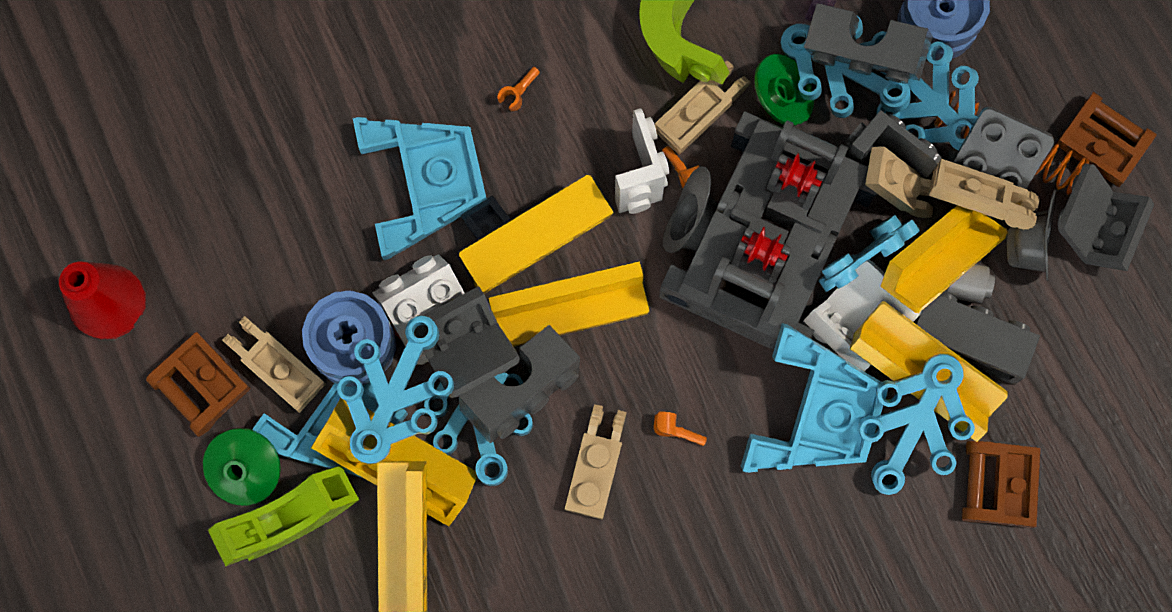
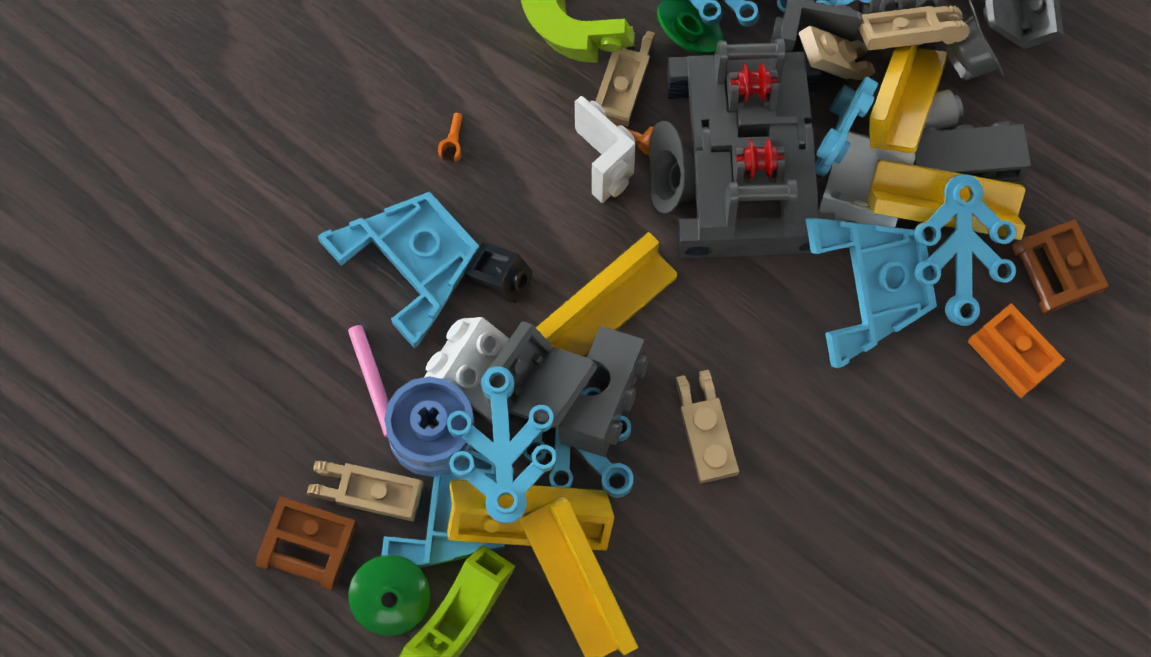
camera: 30 degrees left, 5 degrees down
(102, 298) = (174, 513): red cone -> none
(336, 255) = (370, 372): none -> bright pink bar
(535, 234) = (542, 253): yellow panel -> none
(666, 426) = (748, 365): orange hand -> none
(916, 540) = (1016, 350): none -> orange plate

